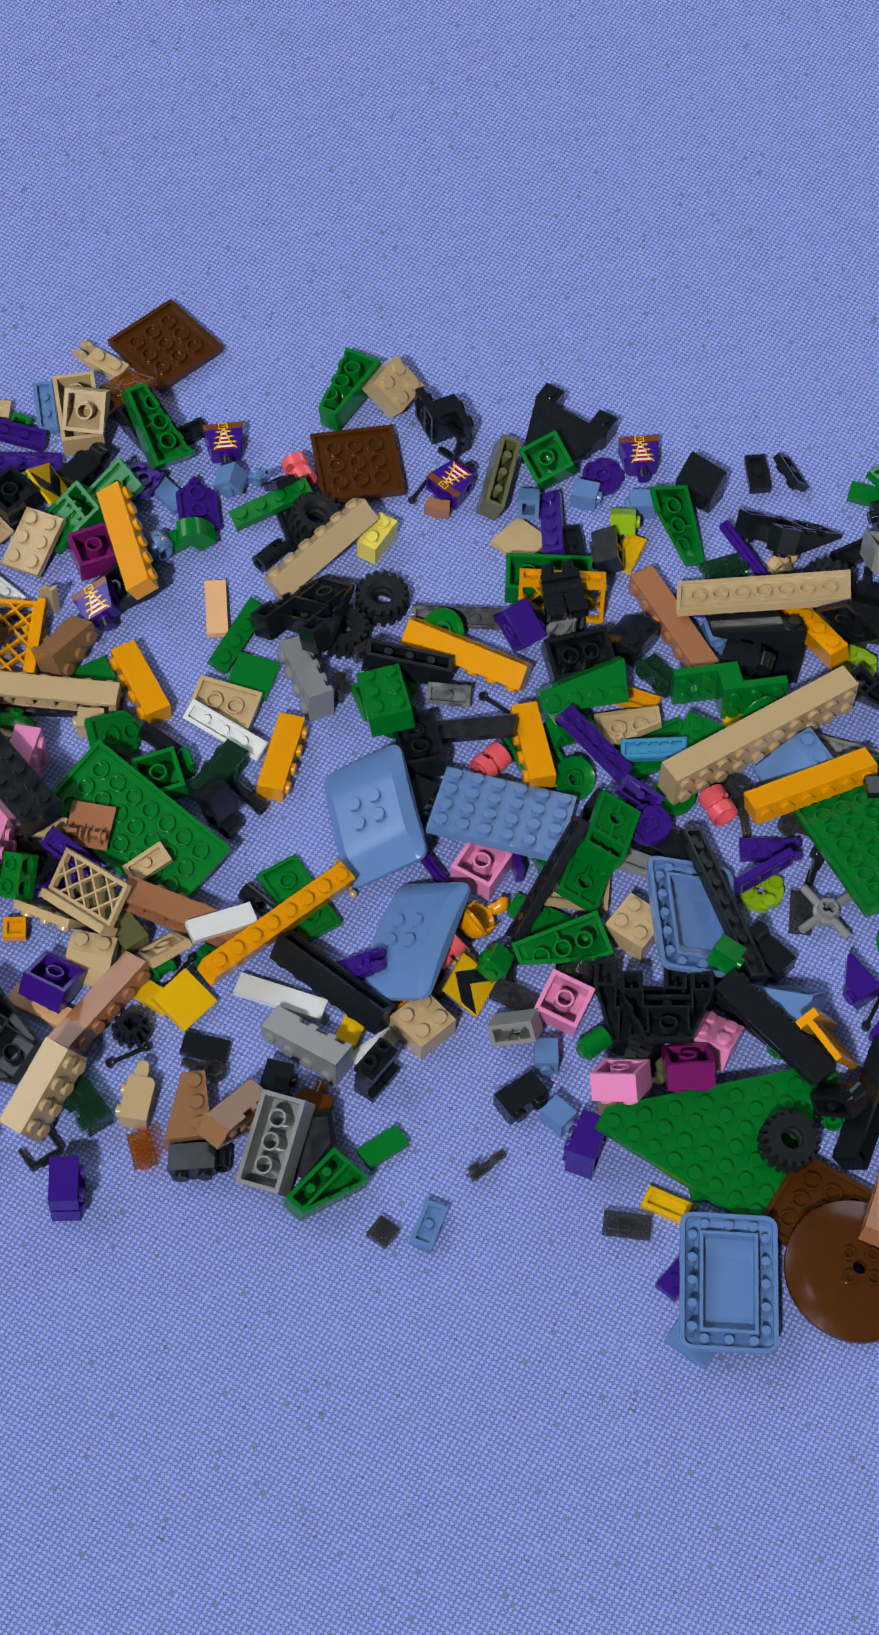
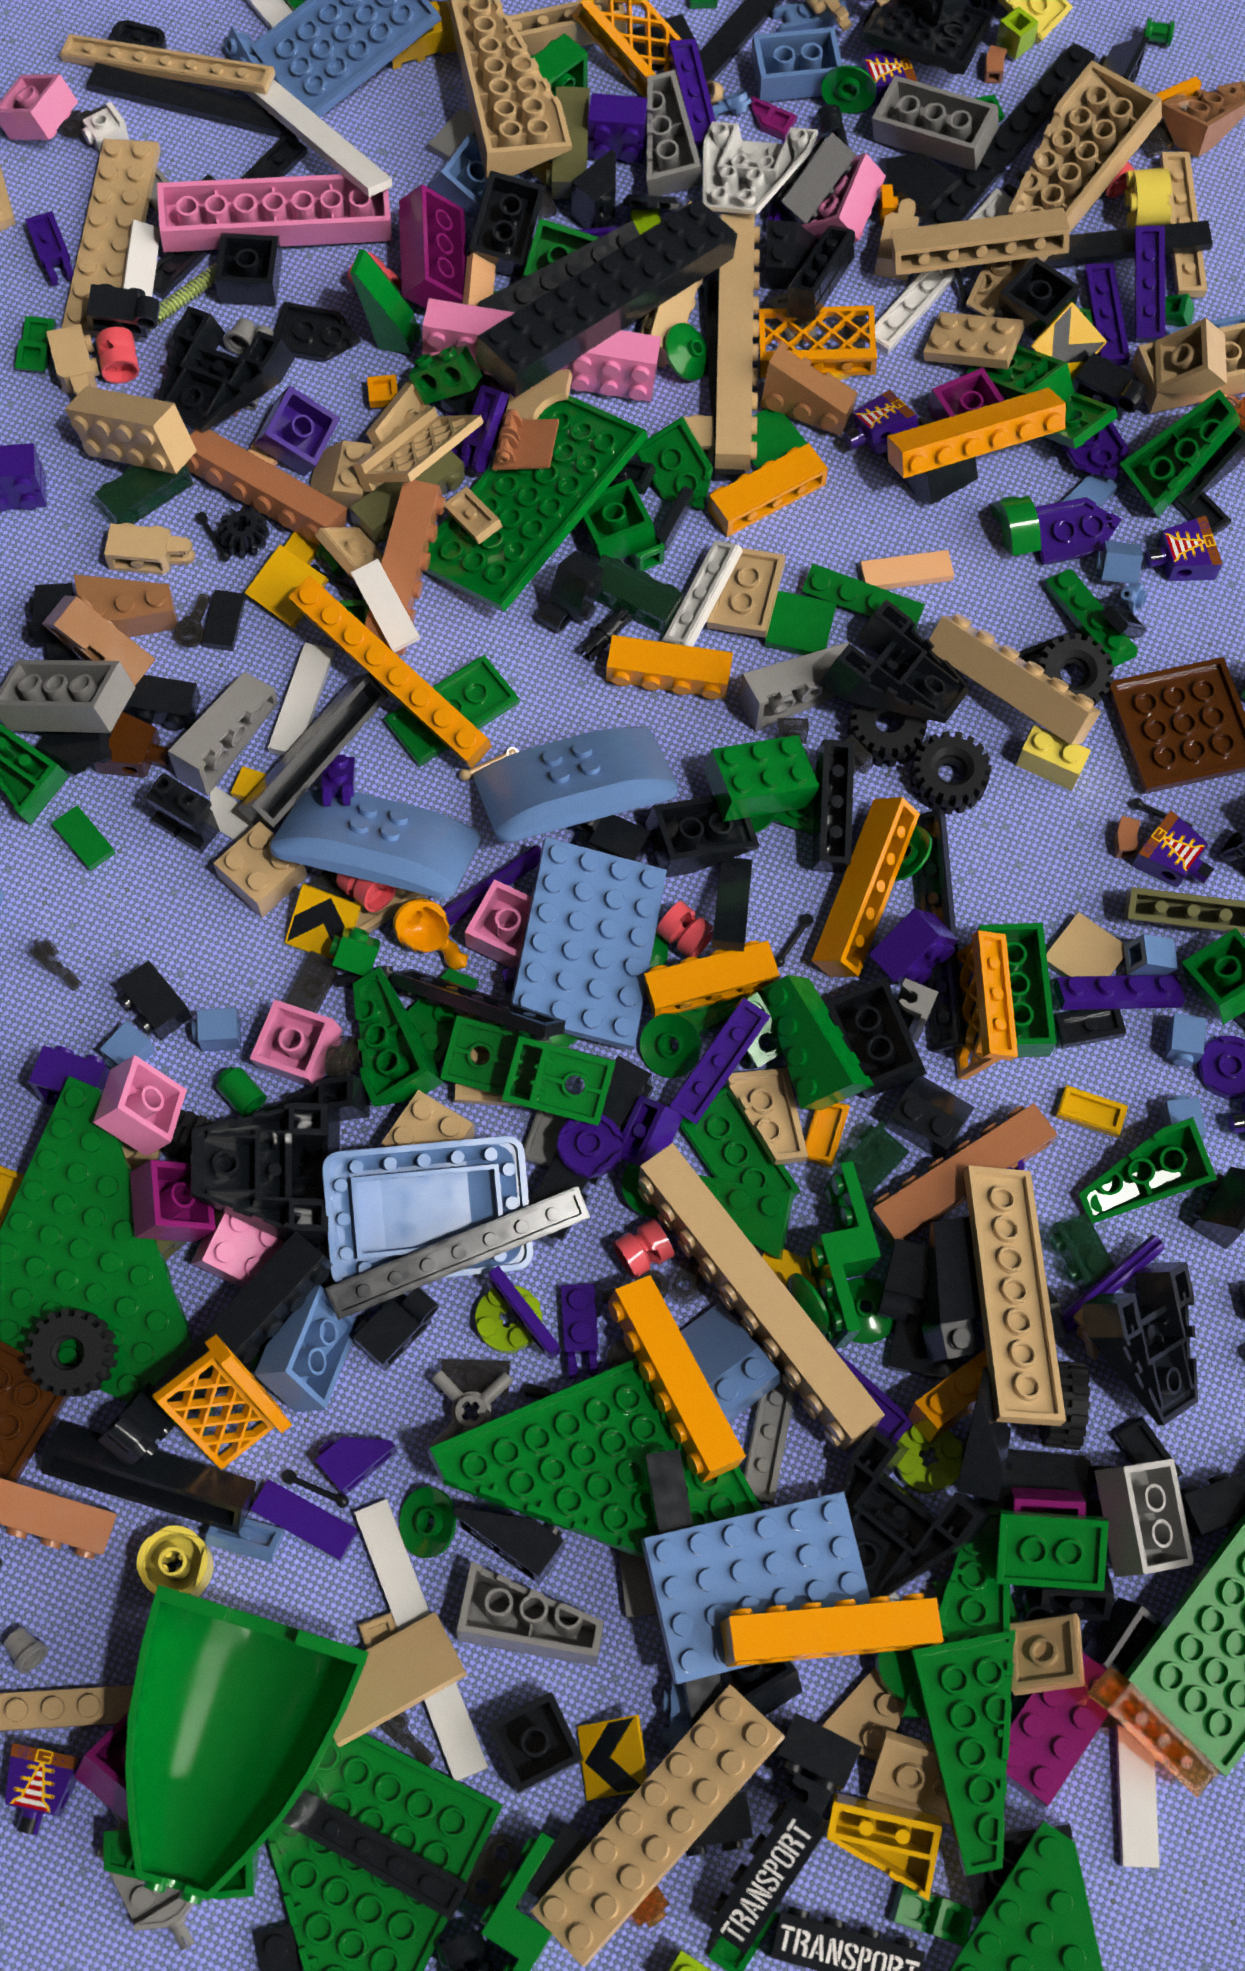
camera: 85 degrees right, 10 degrees up
(44, 1161) = (66, 466): black piece -> none
(51, 596) = (887, 369): tan tile -> none
(141, 1150) = (71, 558): clear orange brick -> none
(159, 545) = (993, 485): medium blue head -> none
(257, 898) = (442, 658): black hinge -> none
(271, 554) = (1006, 627): black hinge -> none
(299, 465) = (1155, 645): coral wheel -> none
(448, 694) = (797, 870): black plate -> none
(515, 1027) = (250, 981): light grey brick -> none
(559, 586) = (955, 987): black hips -> none
(607, 550) = (1080, 1072): black brick -> none
(625, 520) = (1140, 1093): lime brick -> none
(652, 748) = (725, 1150): dark azure plate -> none
(726, 955) = (354, 1249): green brick -> none

